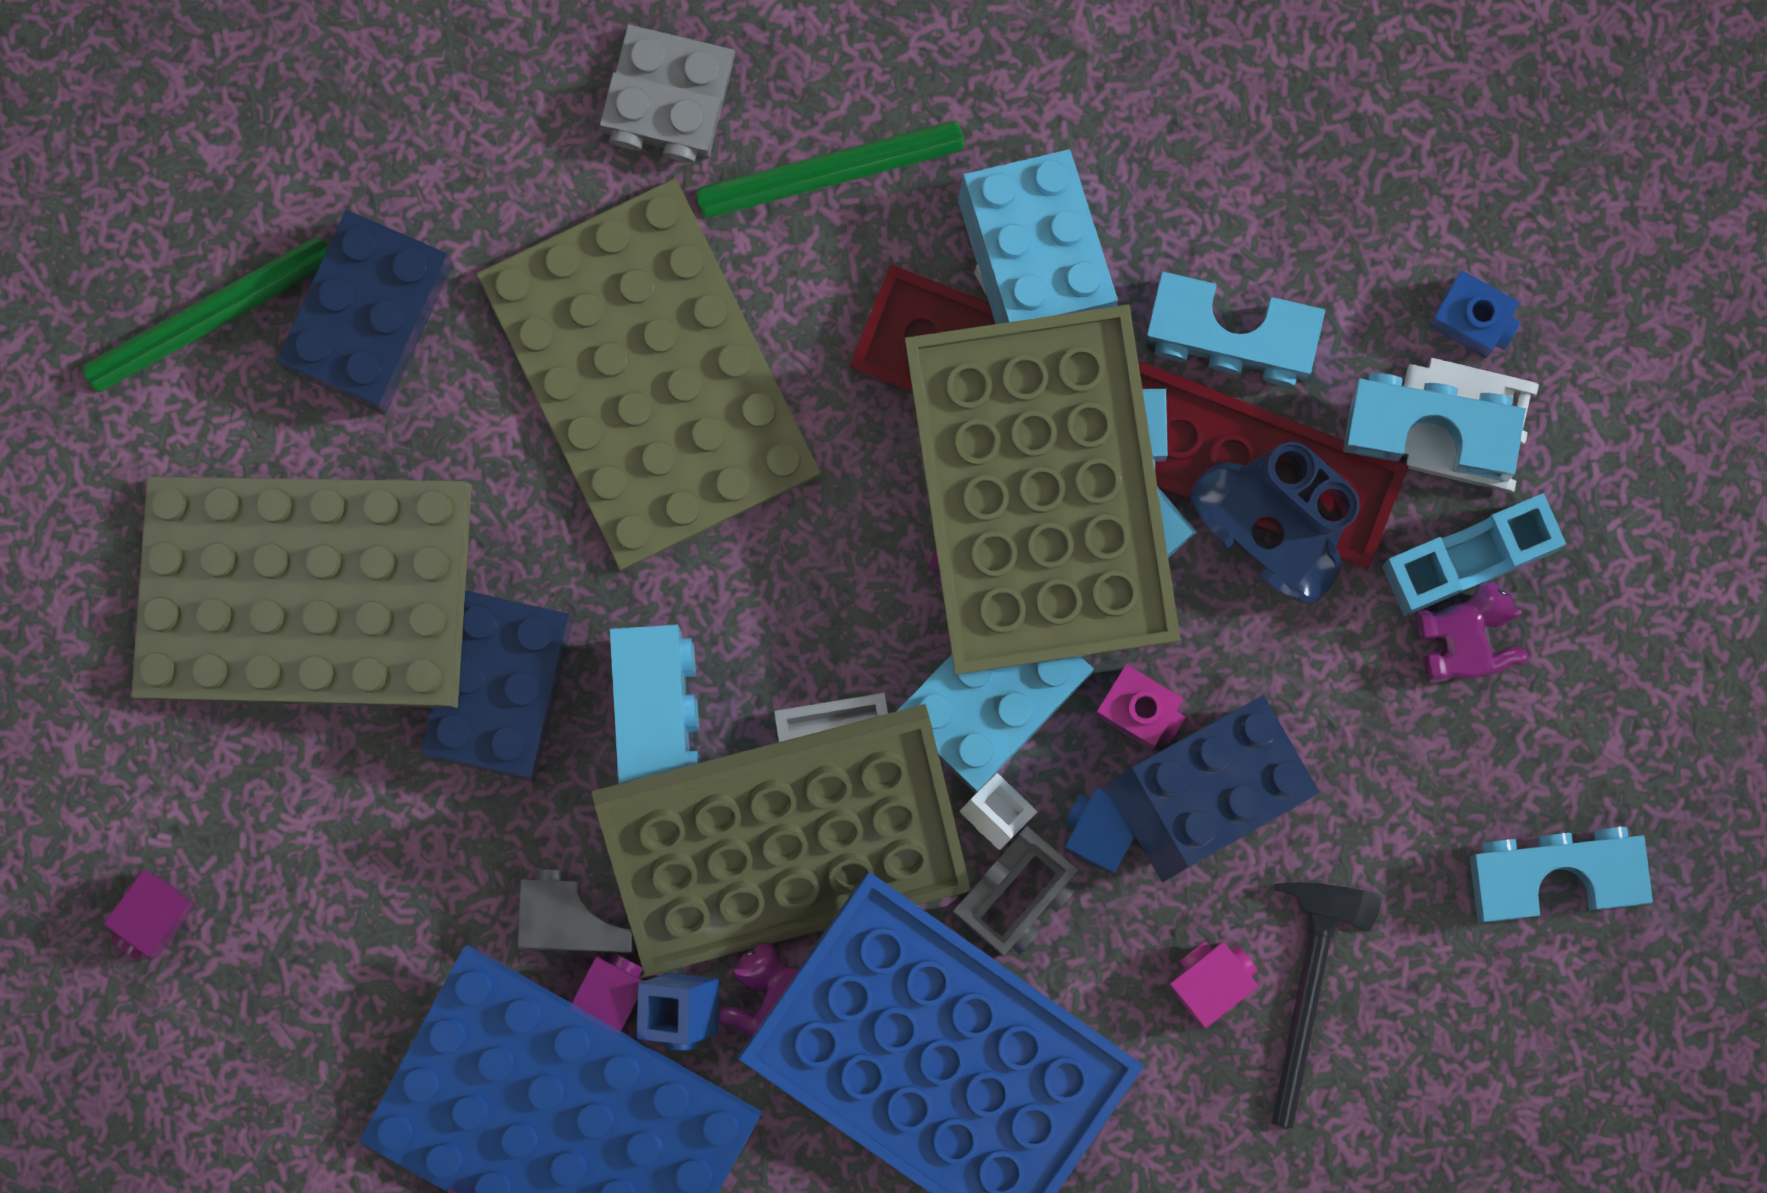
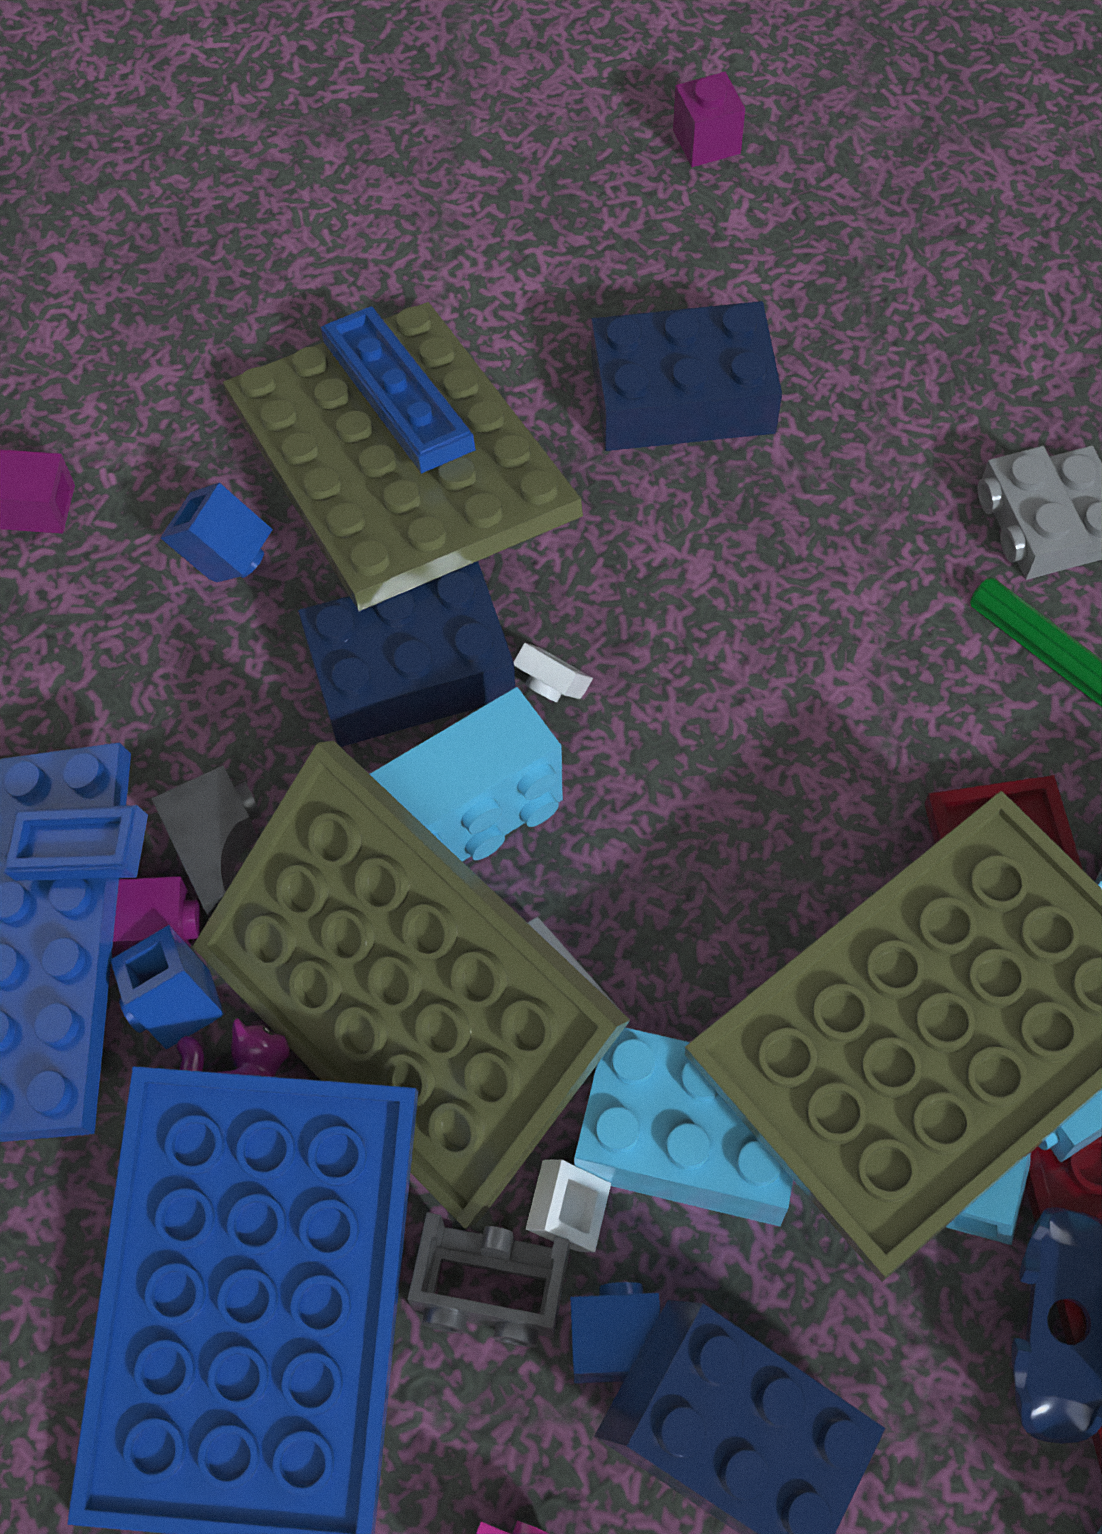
camera: 60 degrees right, 20 degrees down
(100, 117) = (708, 119): none -> magenta brick
(205, 315) = (578, 267): green axle -> none
(253, 562) = (398, 389): none -> blue tile
(306, 774) = (217, 534): none -> blue brick
(539, 1019) = (76, 843): none -> blue tile
(579, 583) = (550, 674): none -> white plate
(648, 374) = (789, 639): olive plate -> none
(1142, 708) = (779, 1296): dark pink brick -> none

